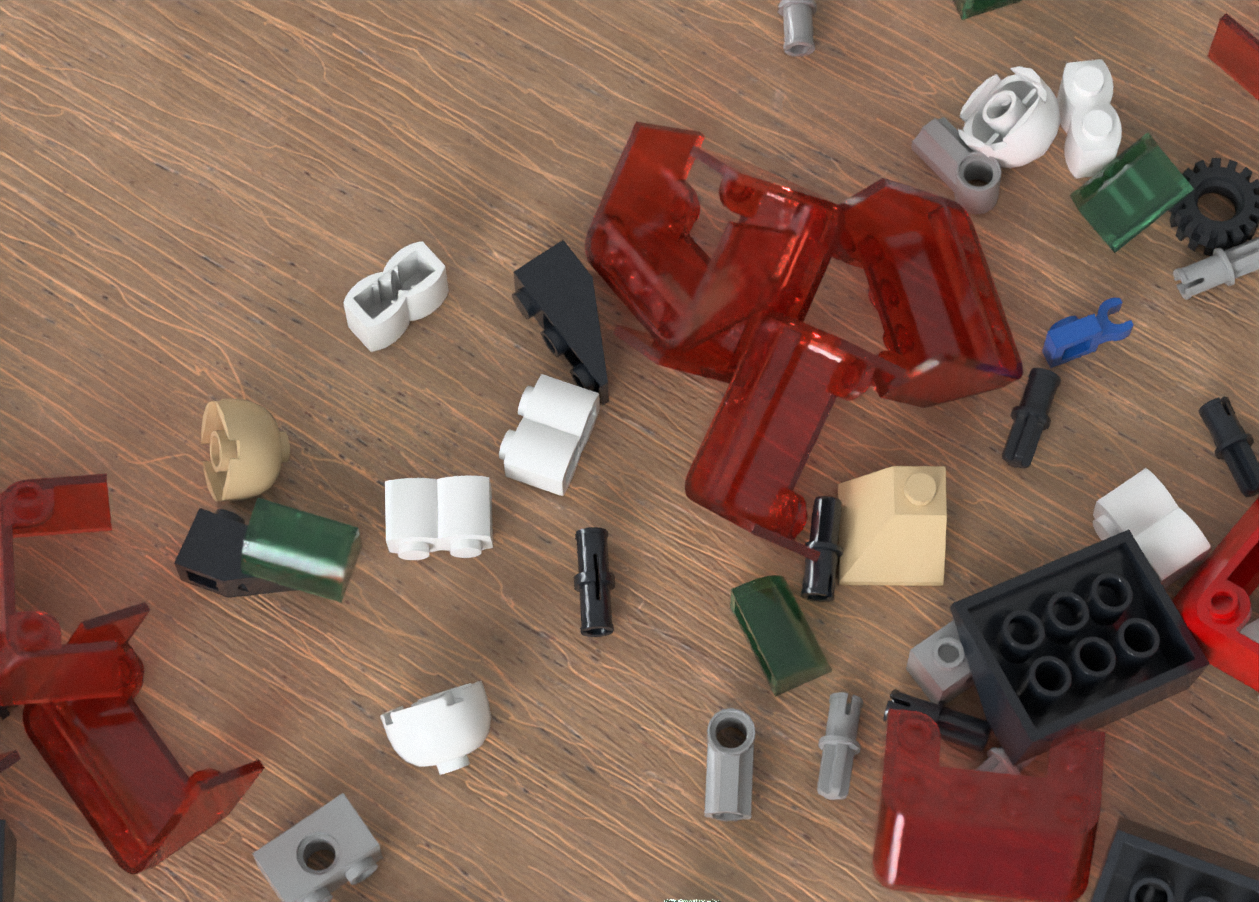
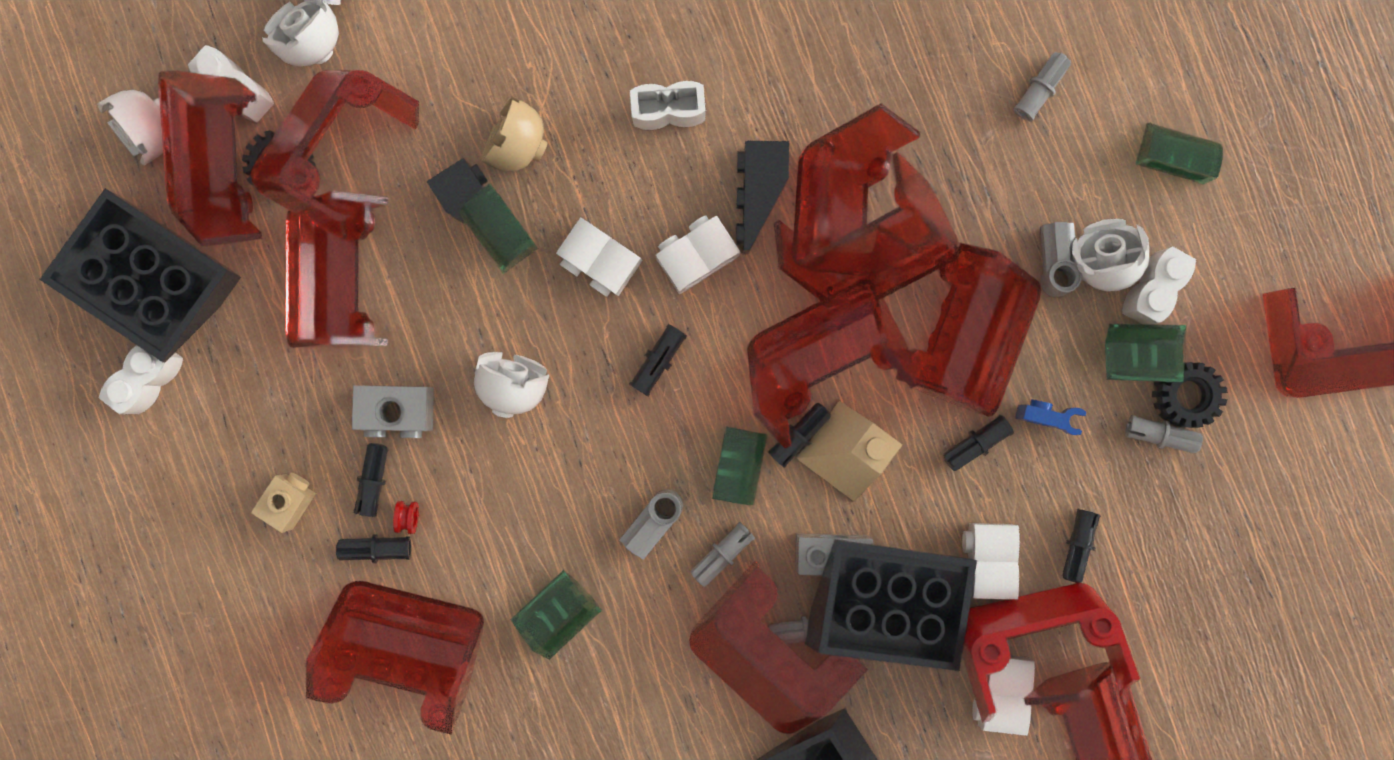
camera: 40 degrees right, 20 degrees up
(953, 725) = (787, 580): black axle -> none

